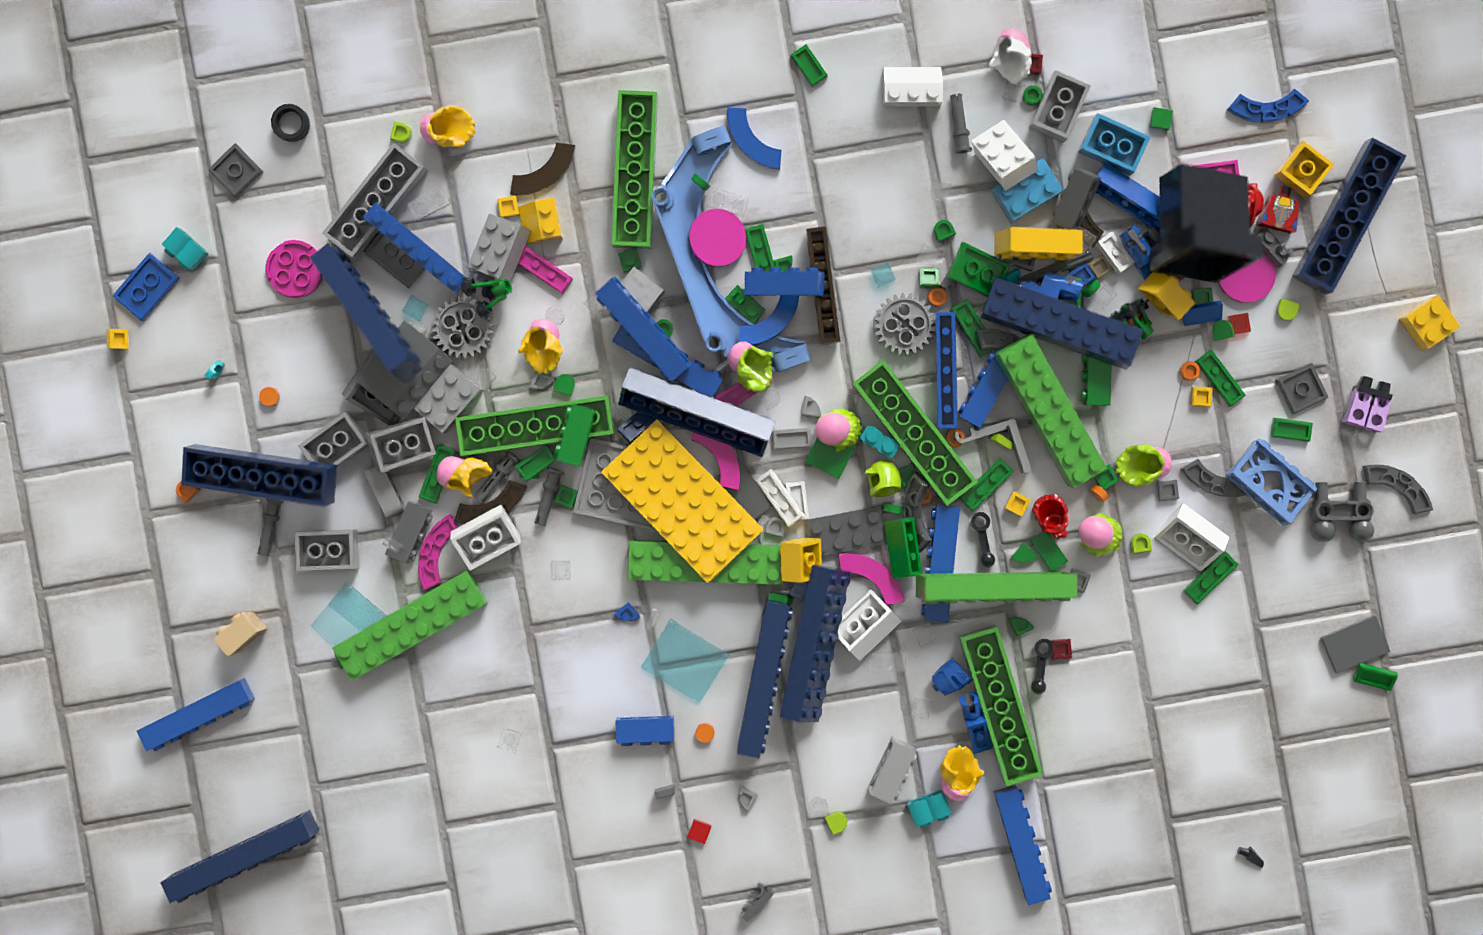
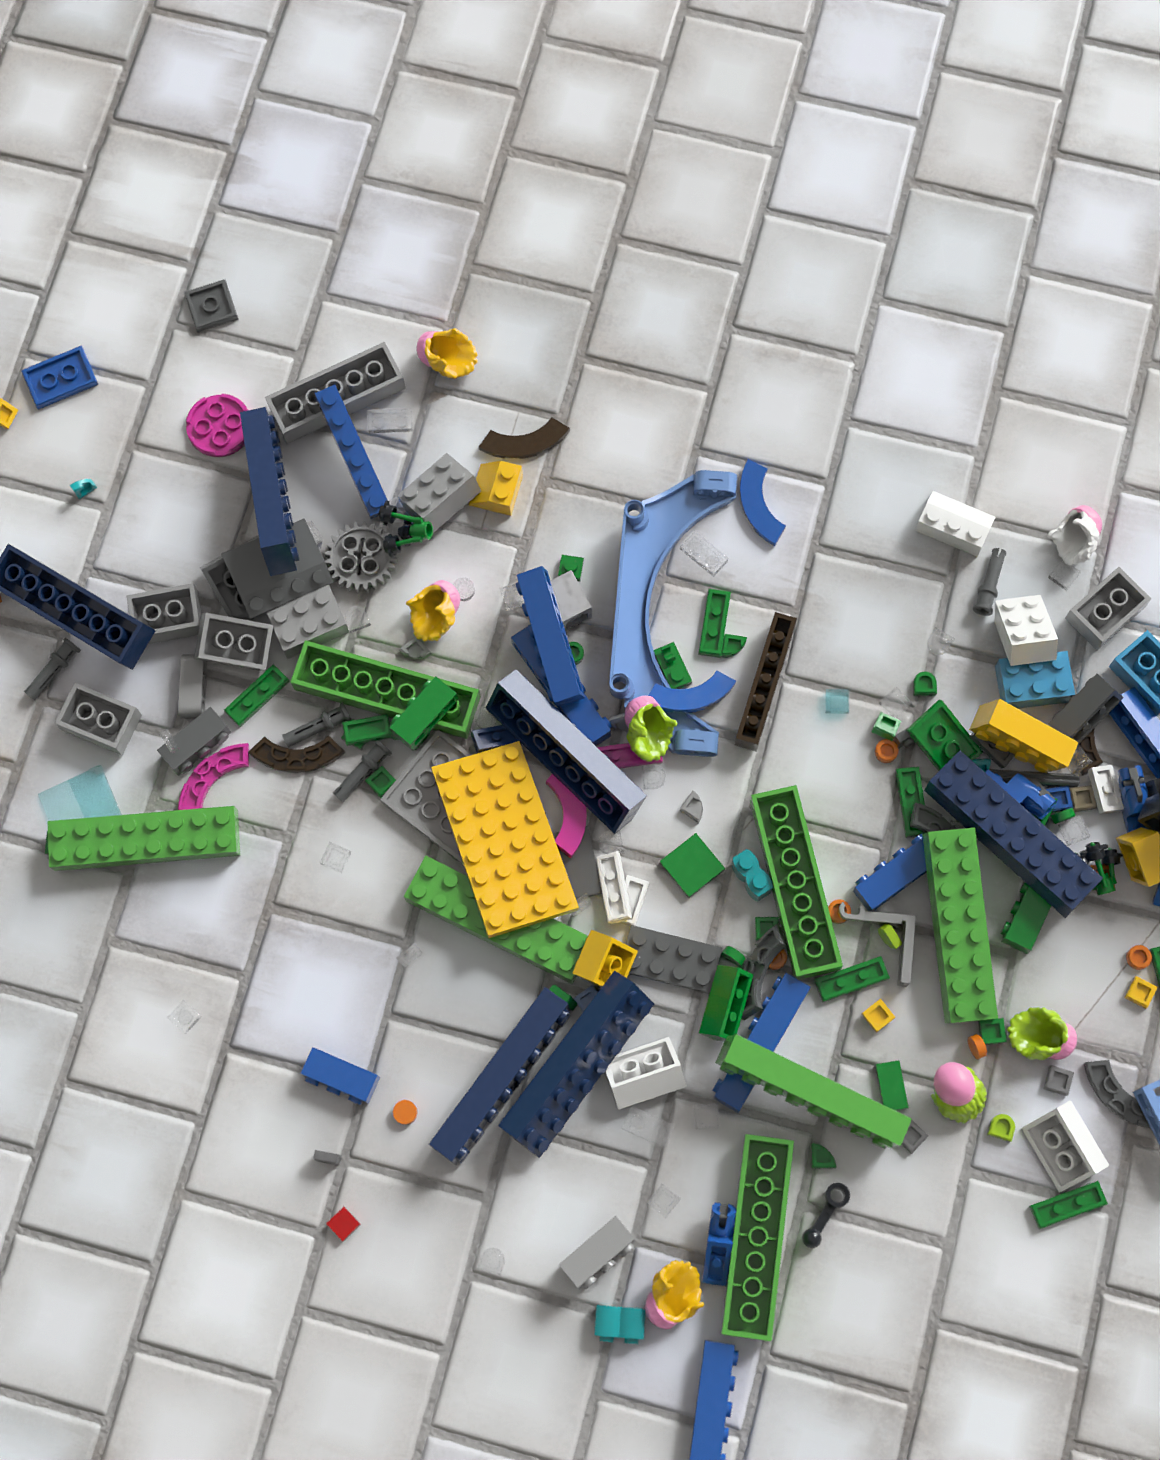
camera: 30 degrees right, 15 degrees down
(184, 249) = (118, 357): teal brick -> none
(269, 396) = (124, 538): orange tile -> none
(279, 112) = (290, 268): black tyre -> none
(394, 260) = (326, 460): dark grey tile -> none
(400, 132) = (397, 341): lime tile -> none
(415, 307) = (322, 517): clear light blue tile -> none
(461, 473) = (283, 704): yellow hair -> none
(485, 537) = (272, 781): white brick -> none
(508, 206) = (471, 459): yellow tile -> none
(544, 270) = (475, 538): dark pink tile -> none
(564, 384) = (438, 663): green tile -> none
(627, 613) = (384, 938): blue tile -> none
(634, 169) = (619, 477): bright green brick -> none
(684, 660) = (422, 1020): clear light blue piece -> none
(700, 182) = (684, 519): green tile -> none
(717, 237) = (675, 583): dark pink tile -> none
(746, 797) = (416, 1210): light grey tile -> none
(762, 897) = (358, 1342): dark grey plate -> none
(775, 526) = (594, 918): light grey tile -> none
(784, 282) = (725, 657): blue brick -> none
(792, 438) = (657, 830): light grey tile -> none
(809, 65) = (854, 456): green tile -> none
(837, 822) = (505, 1288): lime tile -> none
(838, 428) = (713, 839): bright pink hair -> none
(875, 572) = (683, 1021): dark pink tile -> none
(883, 479) = (738, 918): lime piece -> none
(893, 337) = (856, 754): light grey gear -> none
(946, 370) = (862, 830): blue brick -> none
(950, 678) = (713, 1177): blue helmet -> none
(987, 558) = (816, 1061): black piece -> none
(1024, 554) = (861, 1077): green tile -> none
(1032, 95) = (1082, 586): green tile -> none
(1036, 64) = (1099, 557): dark red tile -> none
(1052, 515) = (912, 1044): red hair -> none
(1062, 649) = (858, 1207): dark red tile -> none

